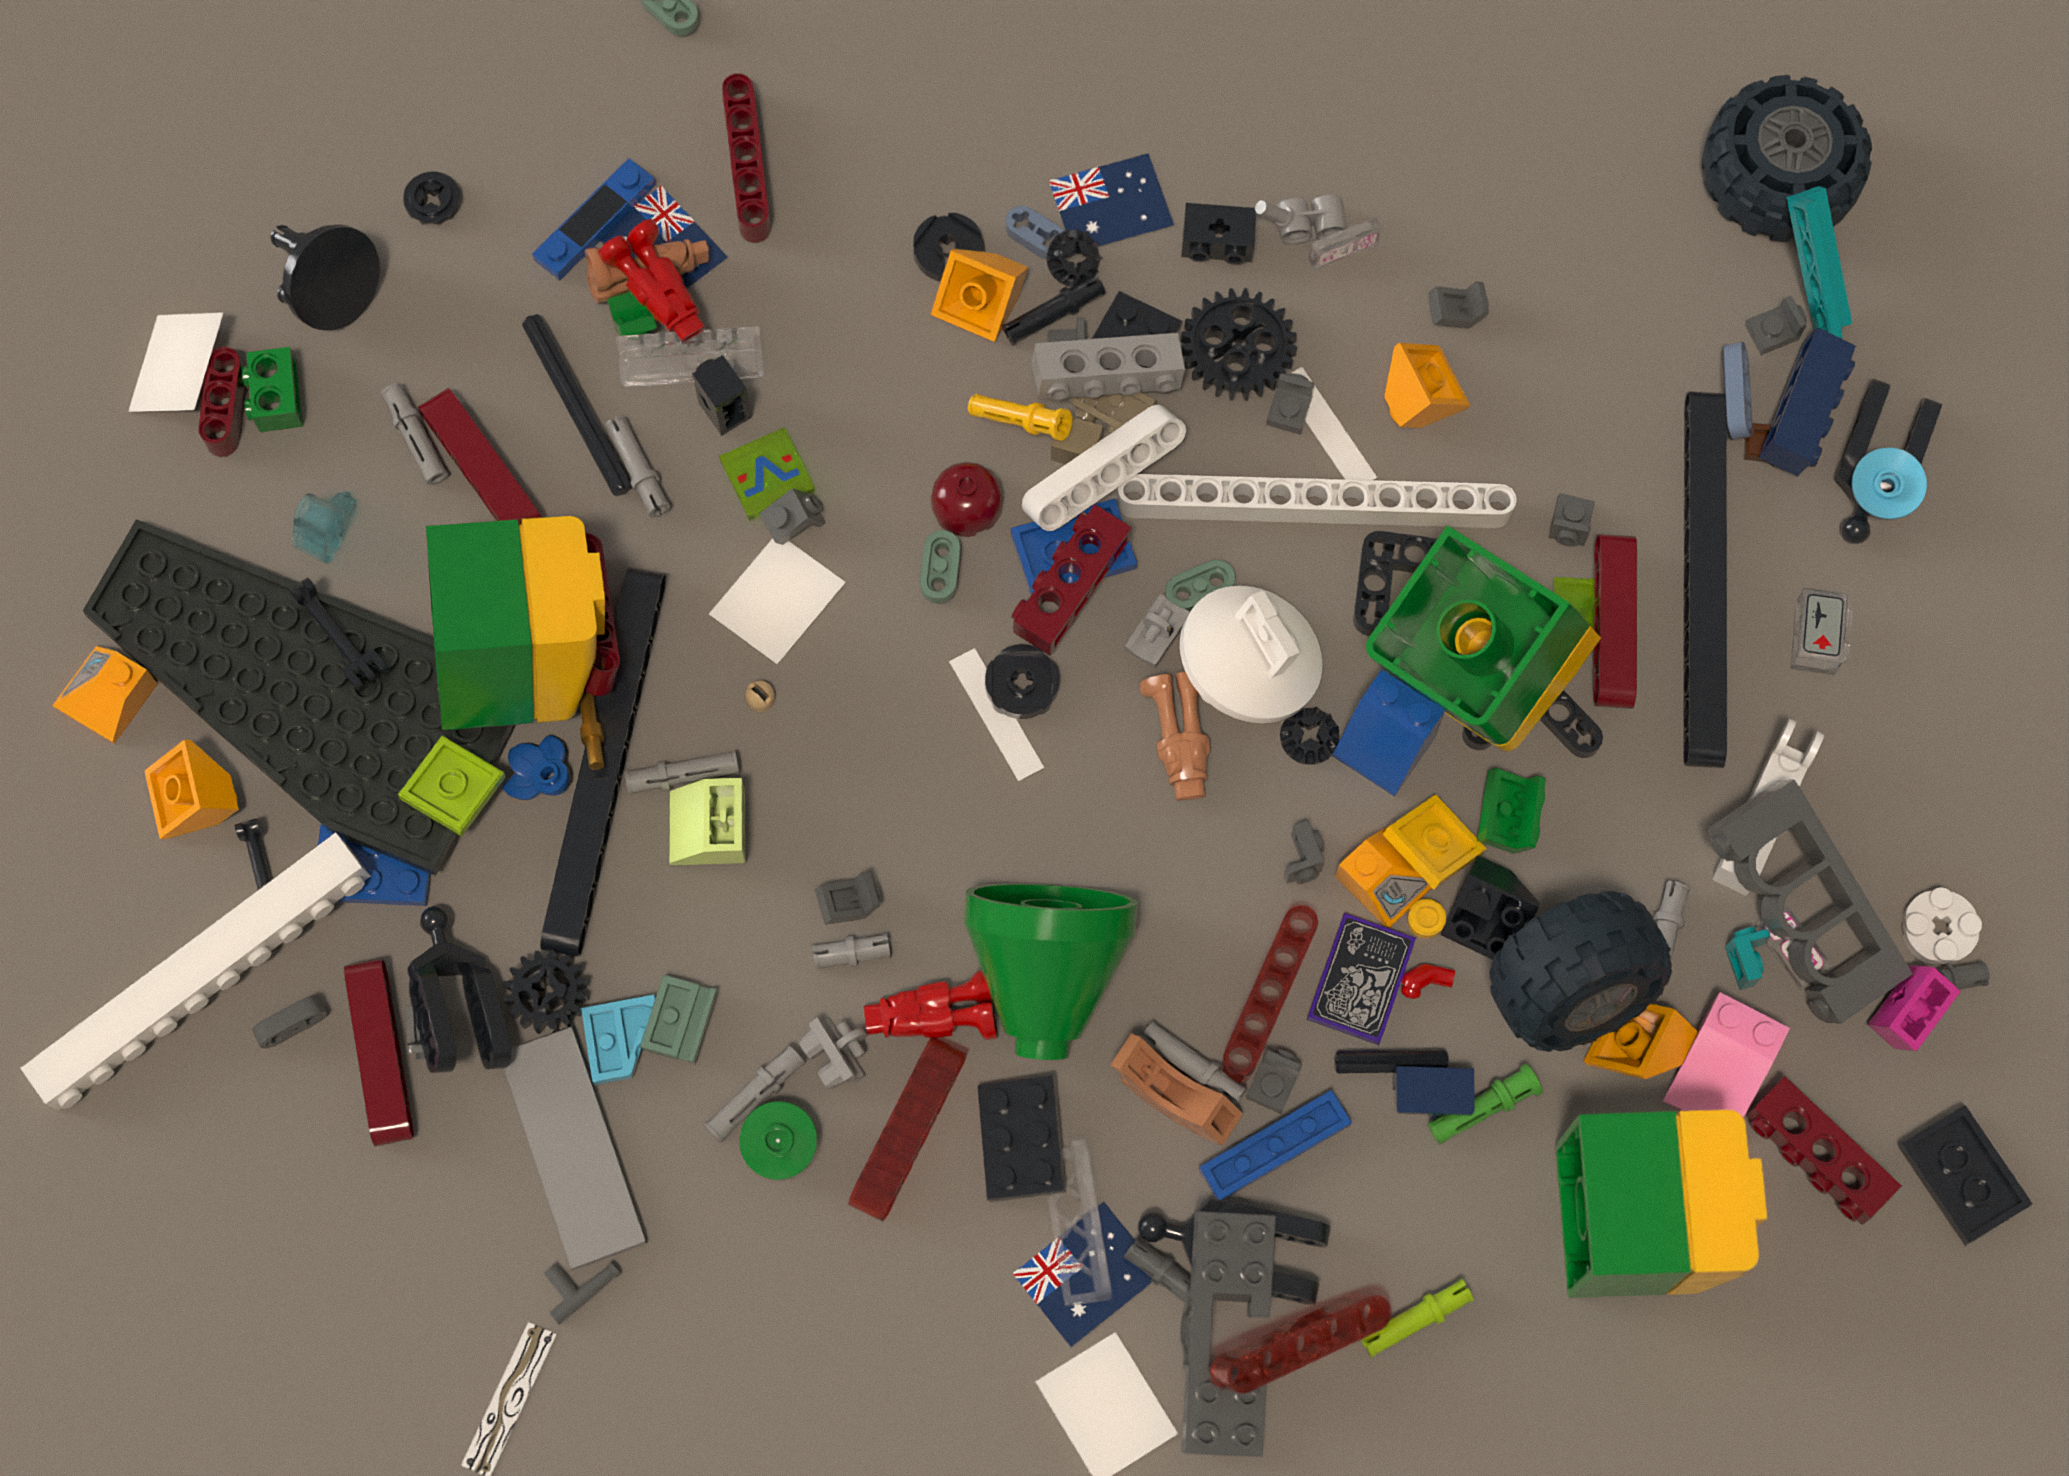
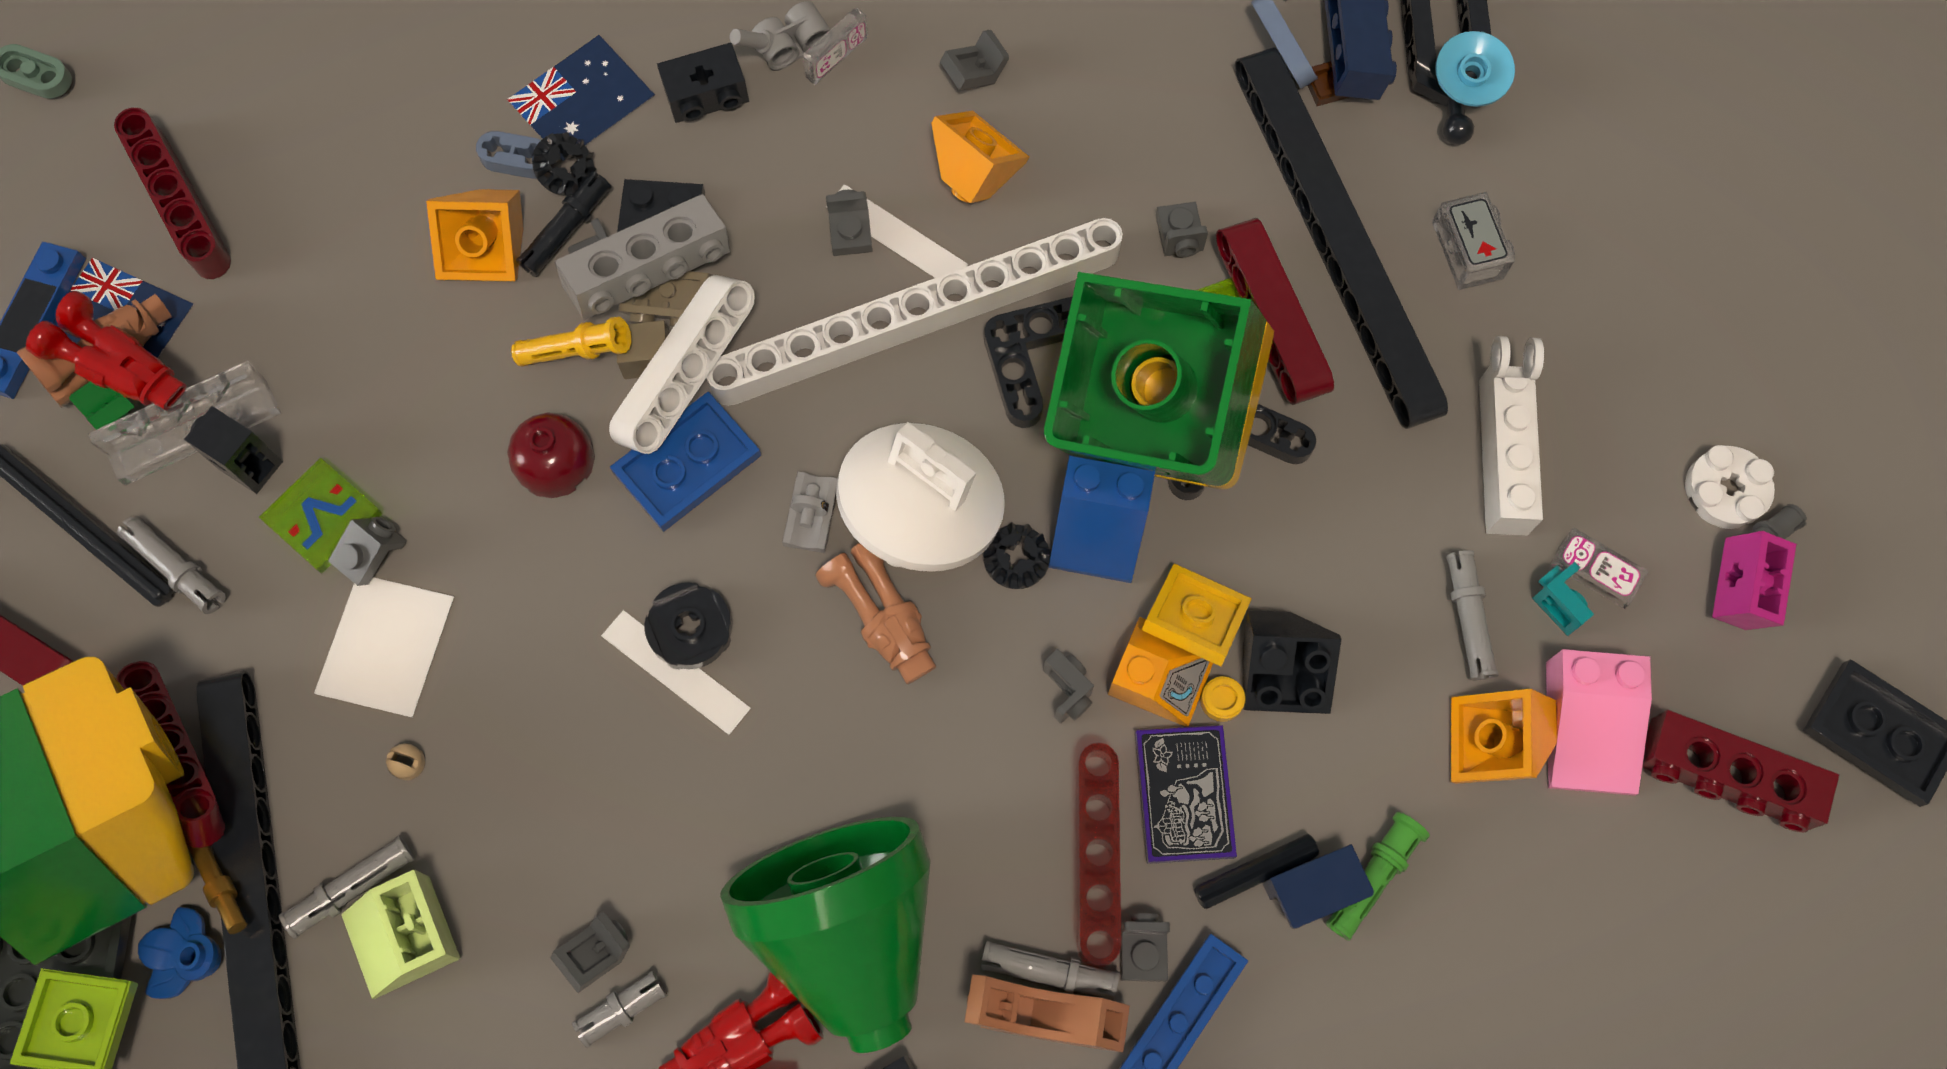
camera: 25 degrees left, 0 degrees up
(938, 568) = (551, 540): sand green plate -> none
(940, 230) = (416, 187): black plate -> none
(1048, 629) = (694, 558): dark red brick -> none
(1197, 582) = (831, 444): sand green plate -> none
(1218, 321) = (741, 171): black gear -> none
(1423, 976) = (1248, 762): red arm -> none
(1511, 811) = (1260, 548): green bracket -> none
(1580, 971) = (1421, 691): black wheel -> none
(1657, 1202) = (1630, 919): green piece -> none
(1863, 977) = (1692, 560): dark grey fence -> none

